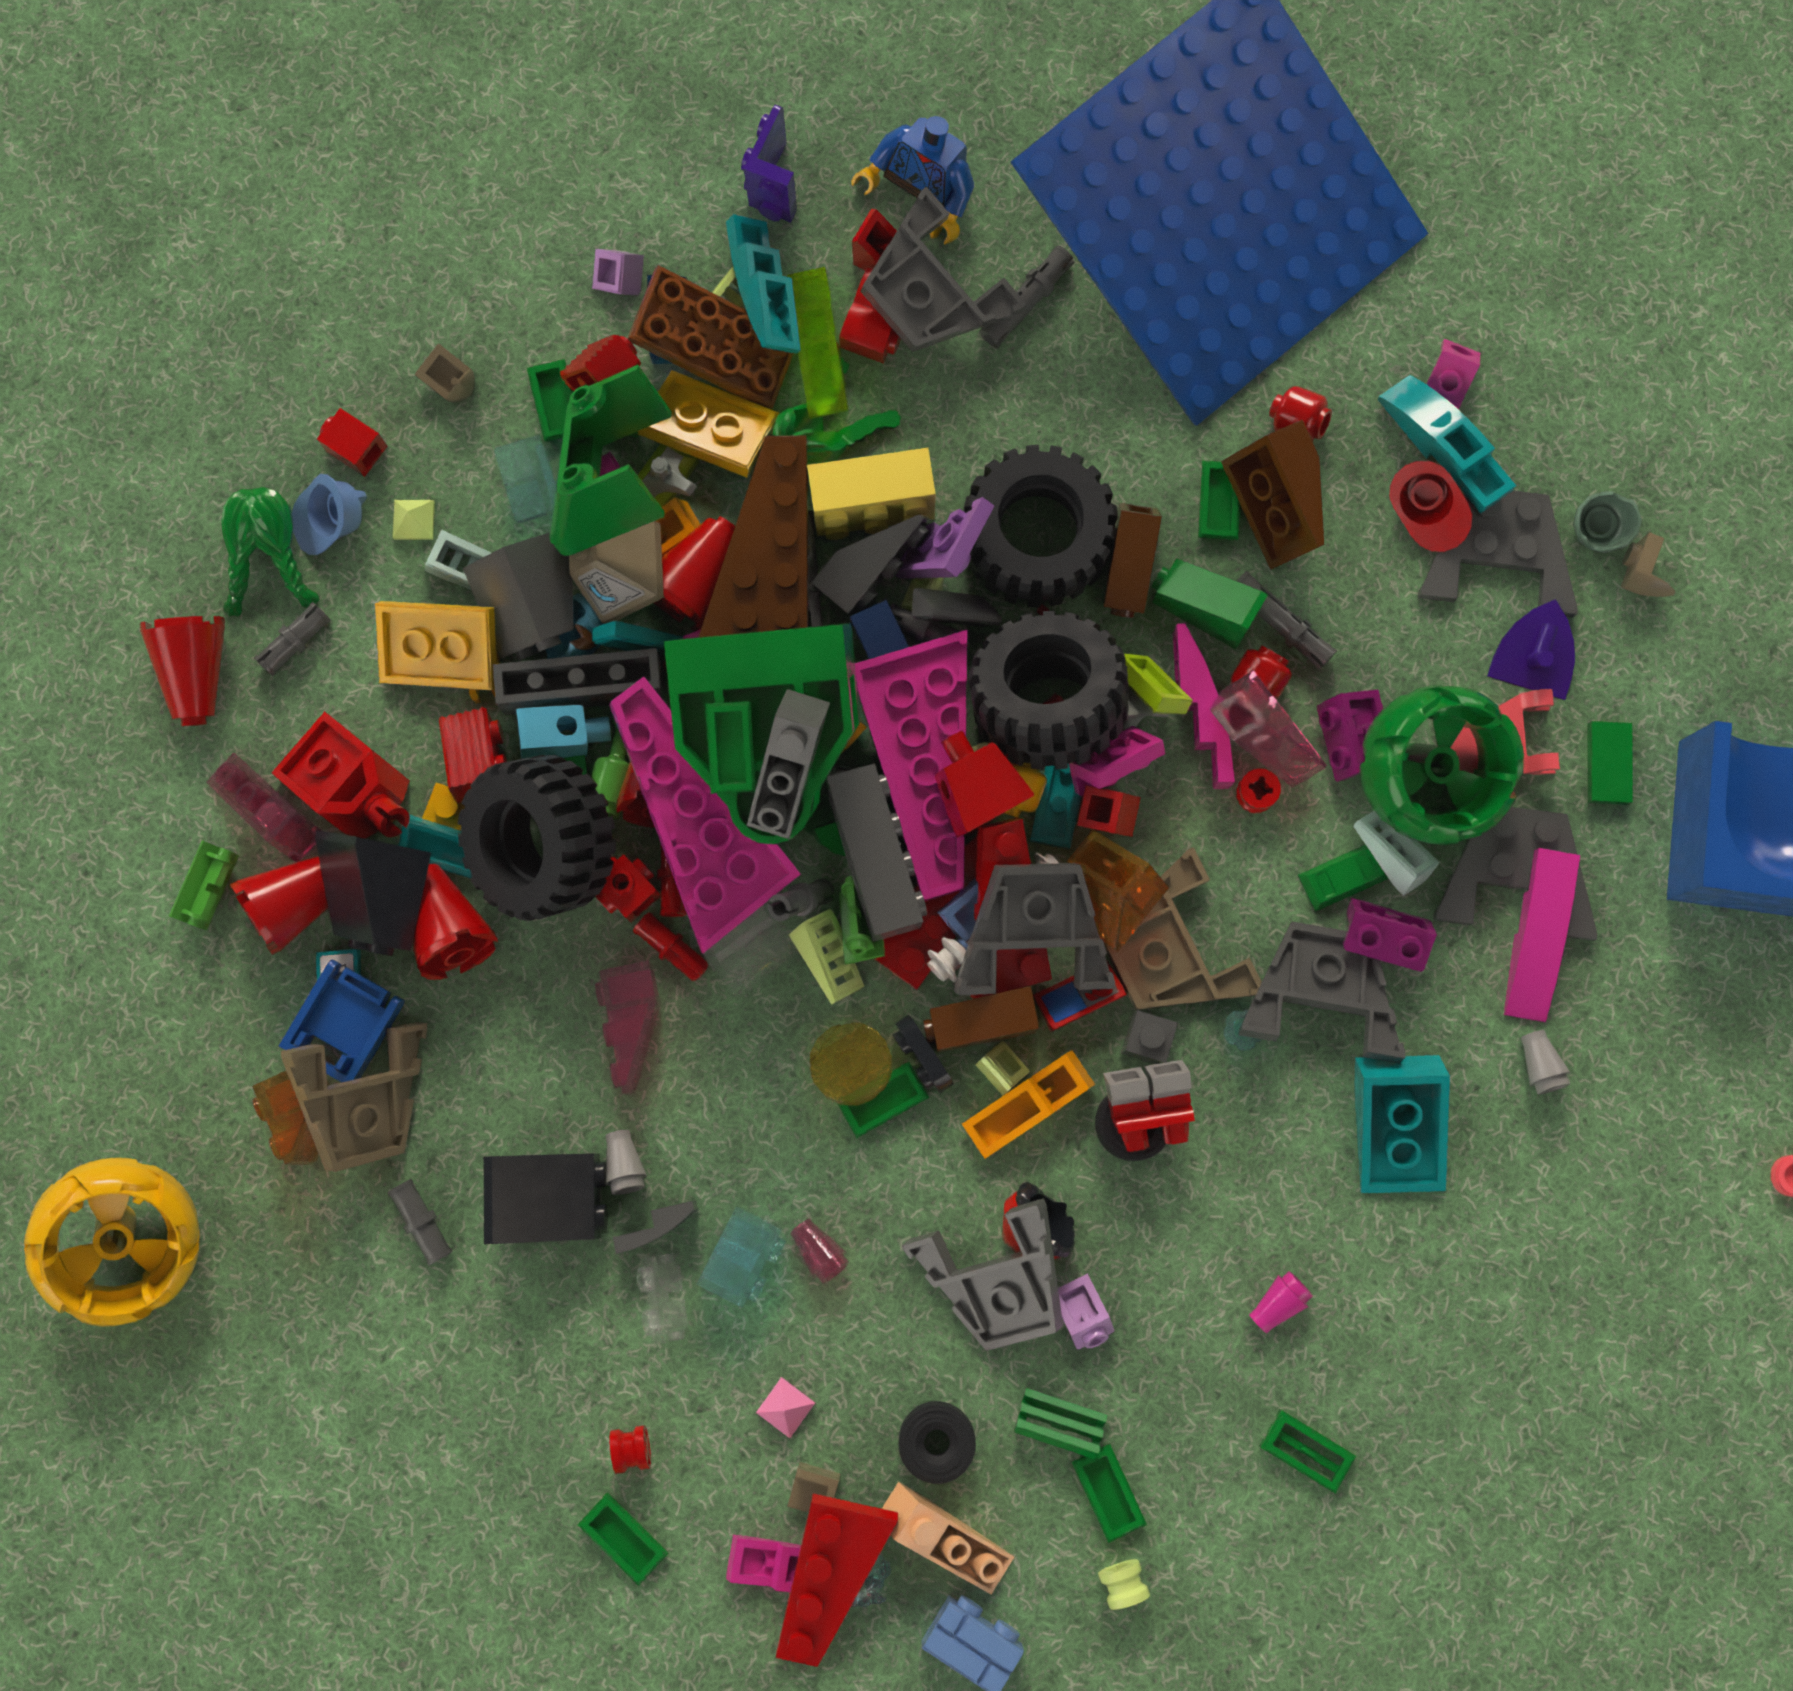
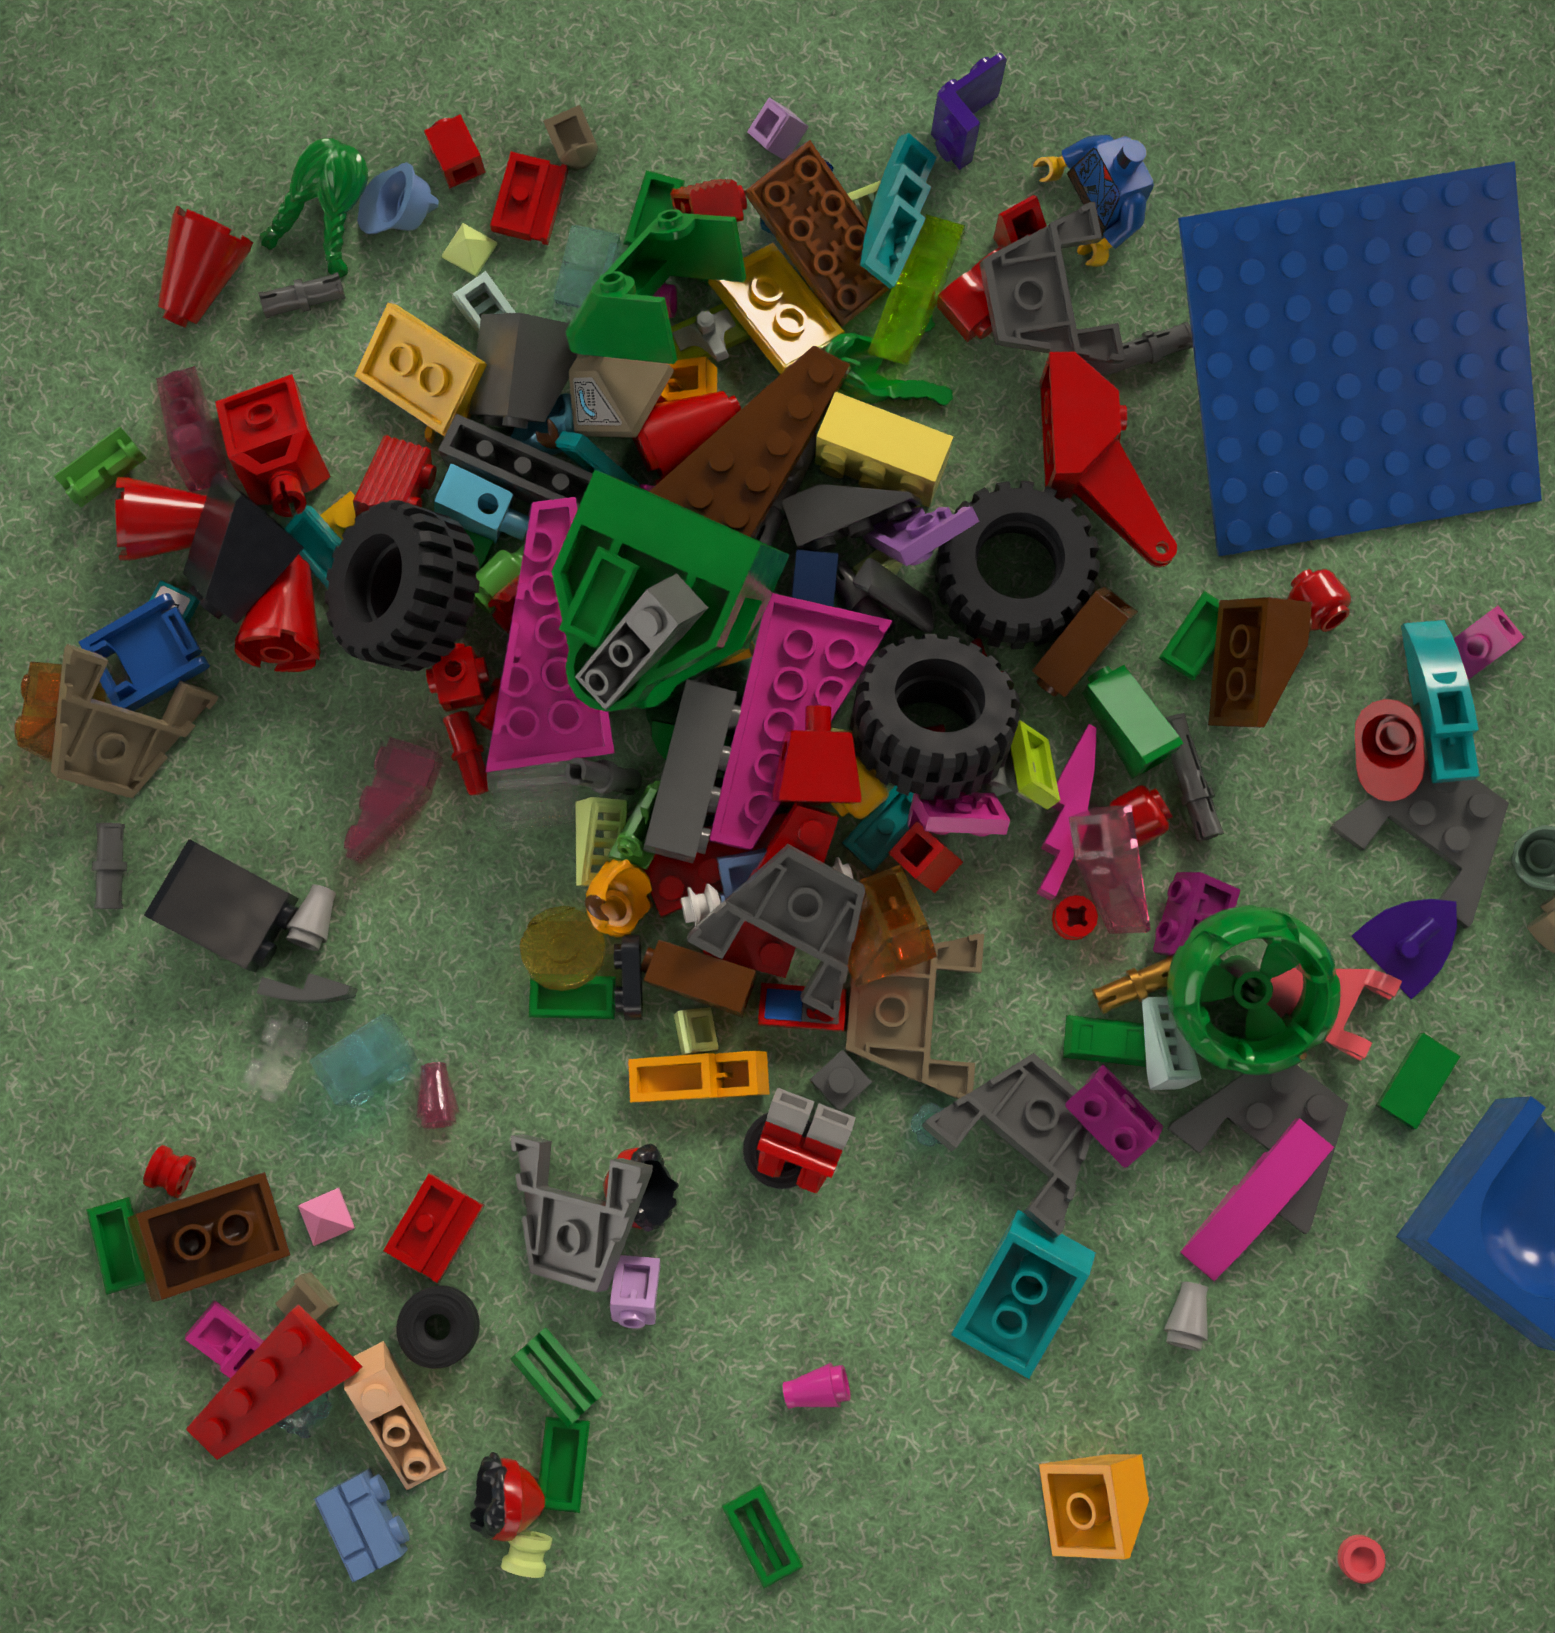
camera: 30 degrees right, 0 degrees up
(440, 447) = (529, 198): none -> red plate
(696, 1485) = (208, 1237): none -> reddish brown slope
(874, 993) = (618, 897): none -> light orange hair
(883, 1362) = (434, 1228): none -> red plate
(1040, 404) = (1086, 458): none -> red slope
(1080, 1550) = (505, 1499): none -> hair
(1339, 818) = (1133, 986): none -> pearl gold pin
(1560, 1261) = (1094, 1505): none -> light orange slope

